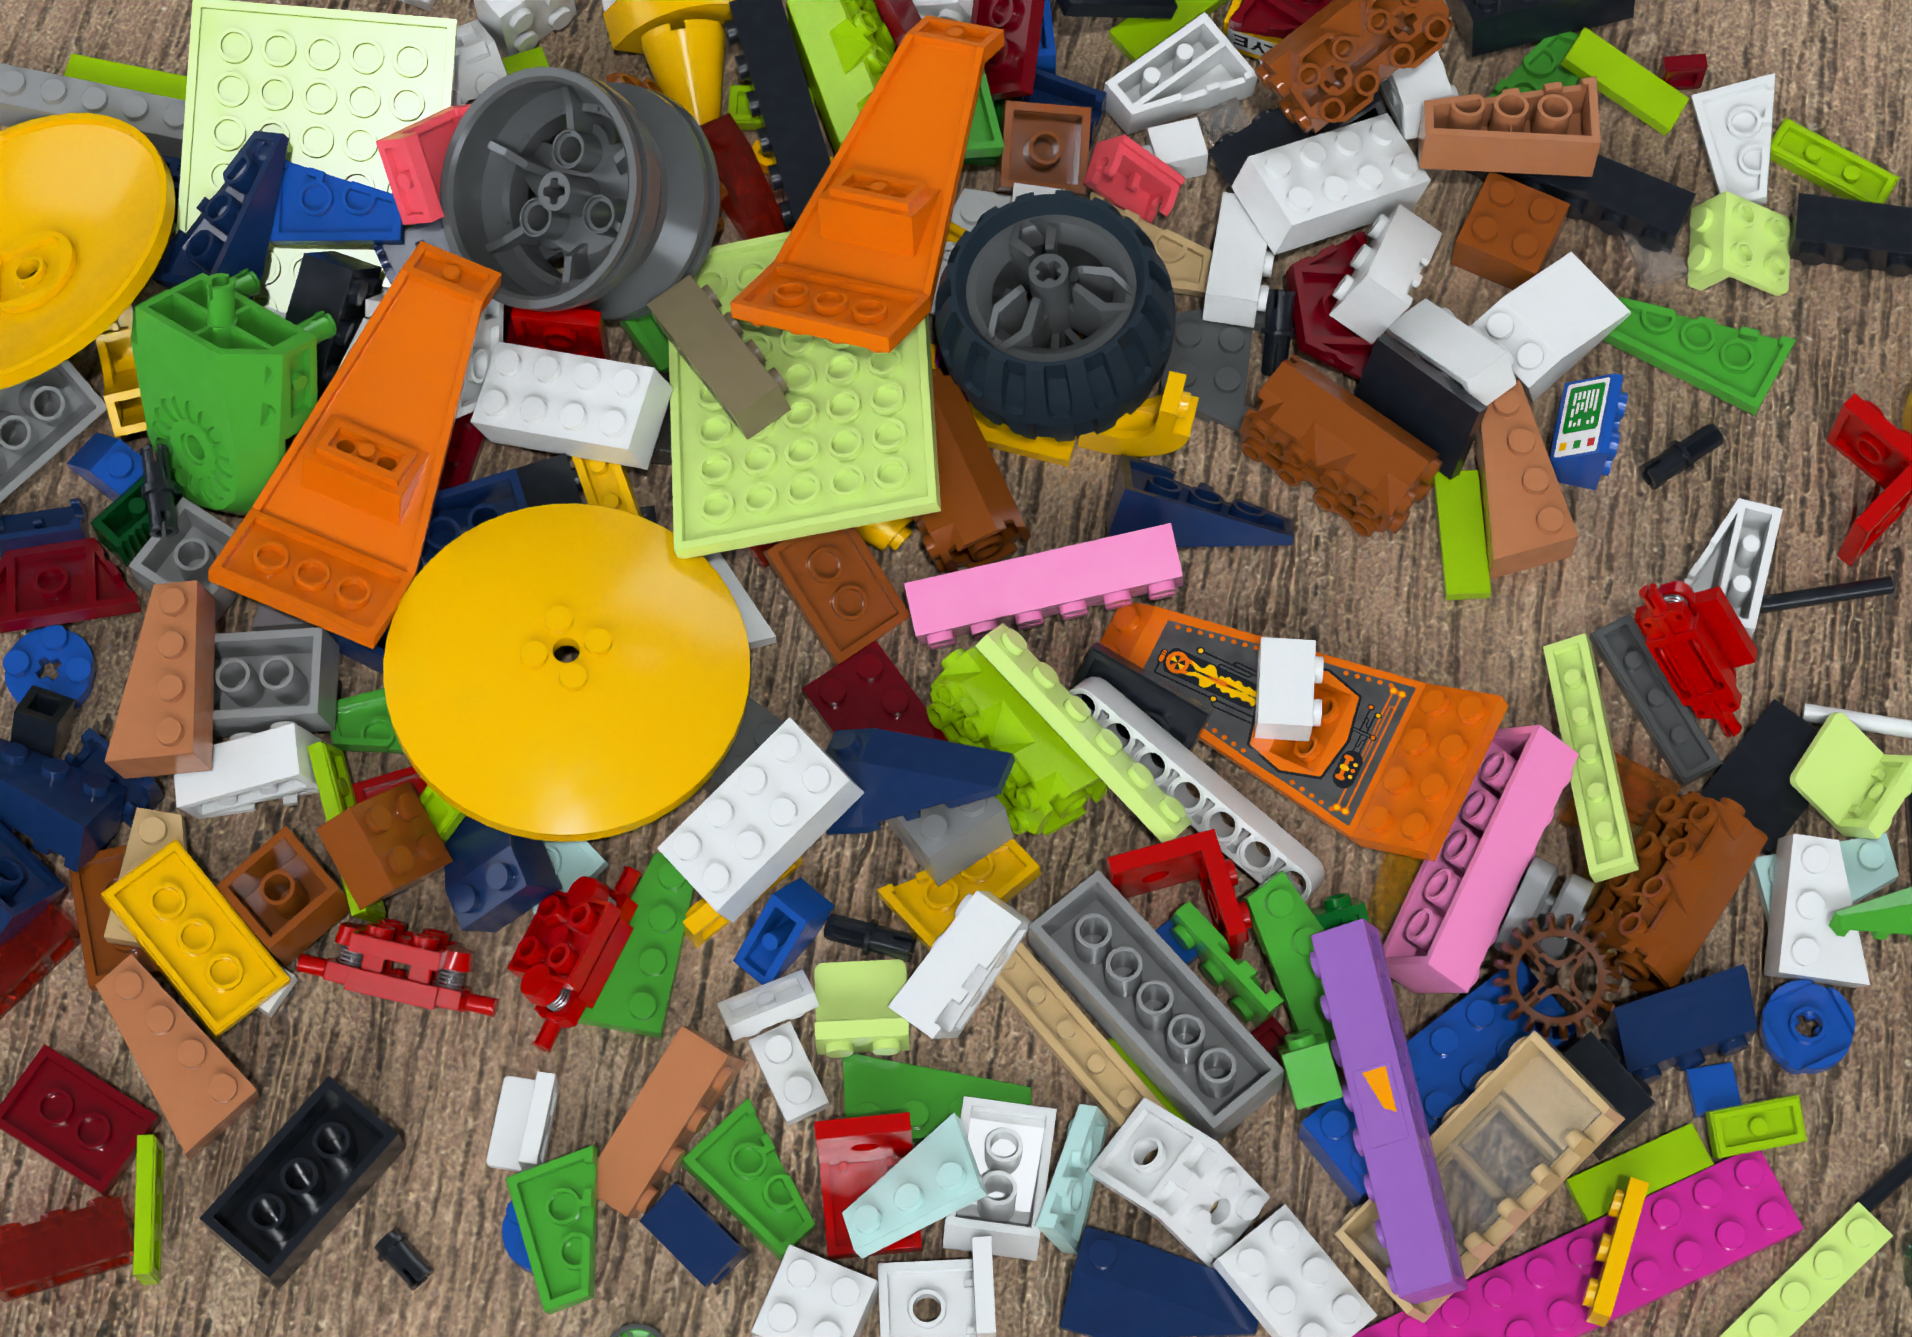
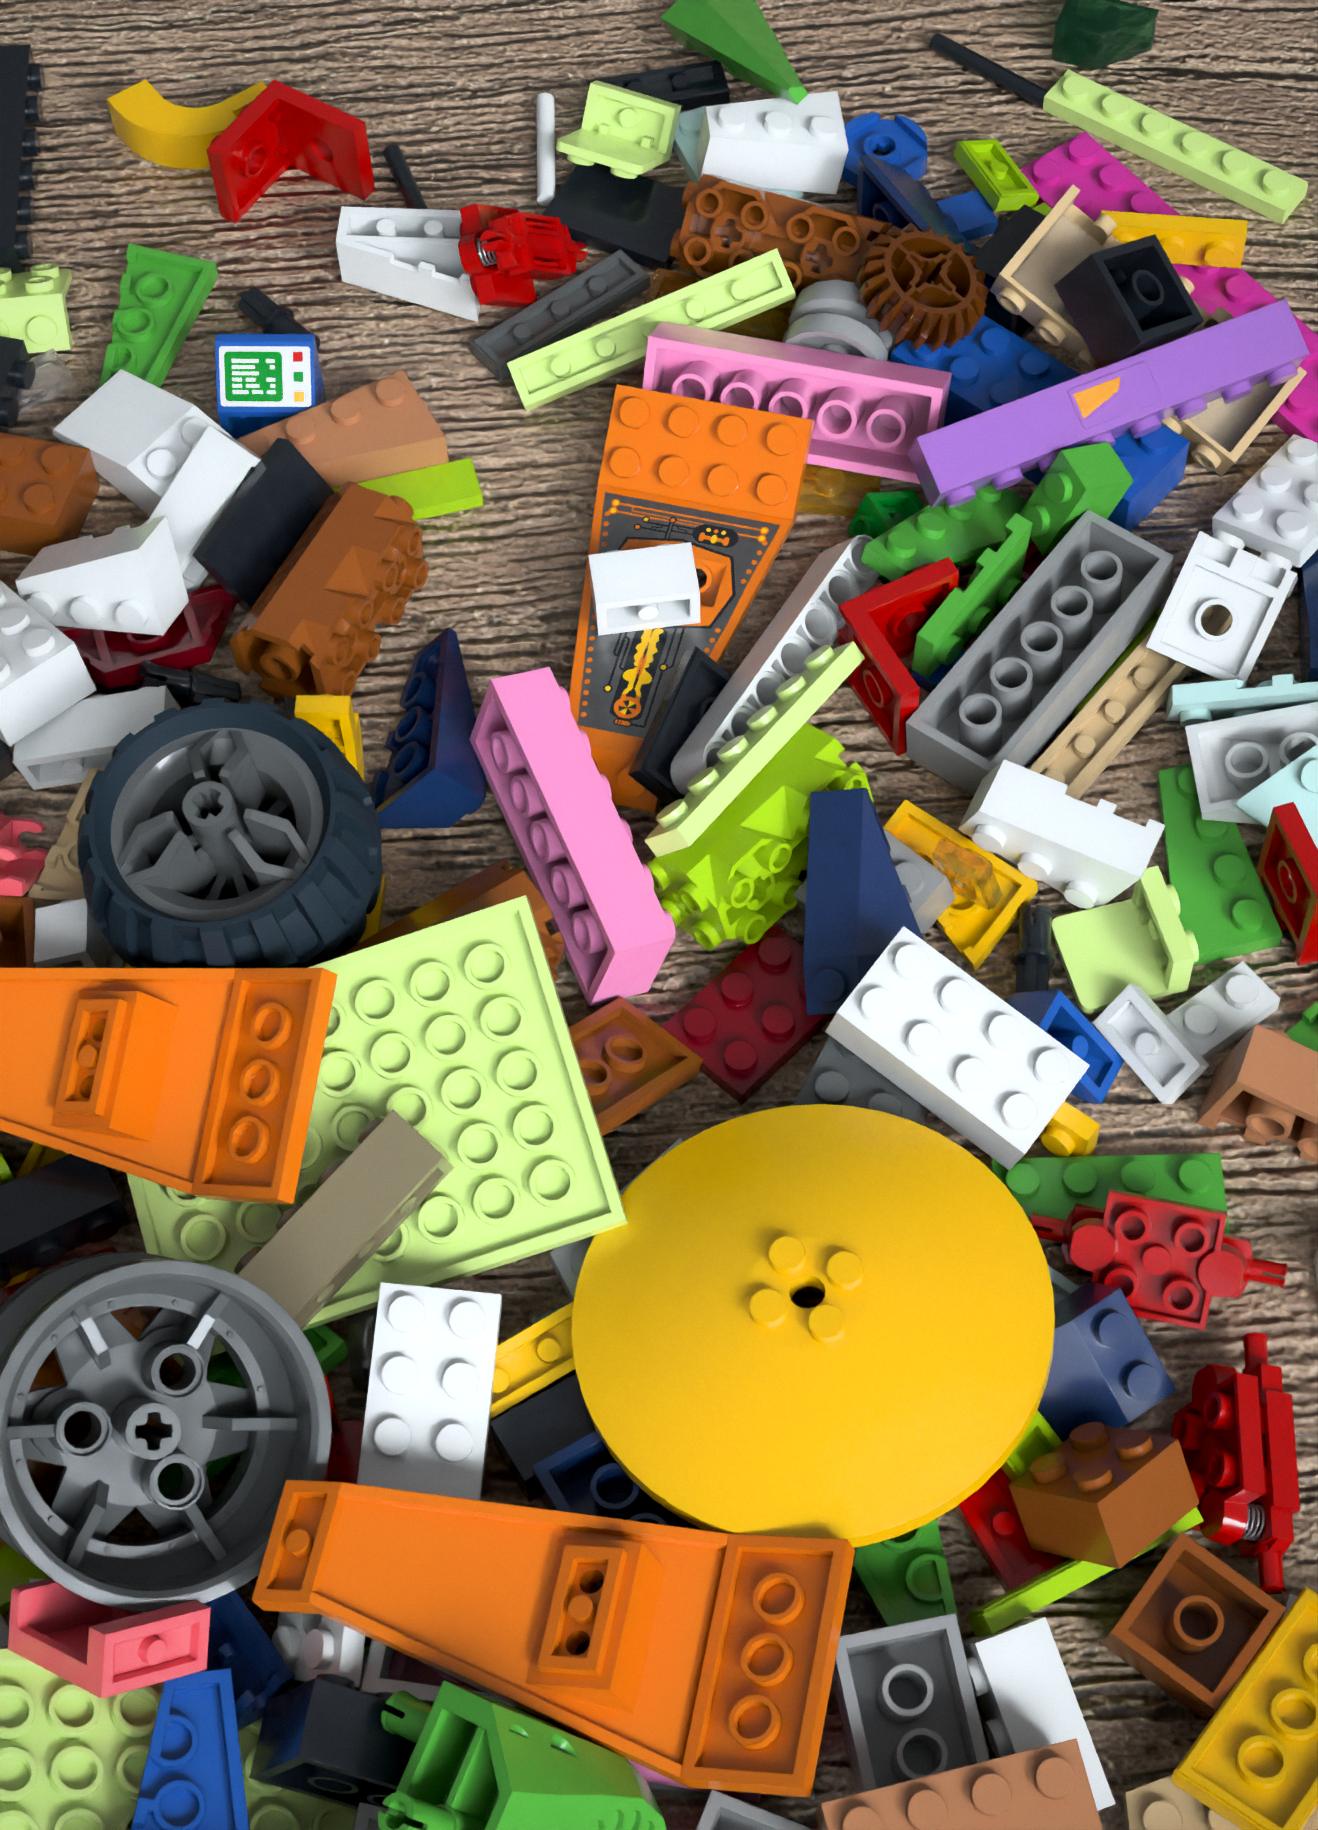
camera: 100 degrees left, 10 degrees down
(930, 877) = (968, 873): none -> clear yellow plate
(1478, 1139) = (1128, 300): none -> black brick

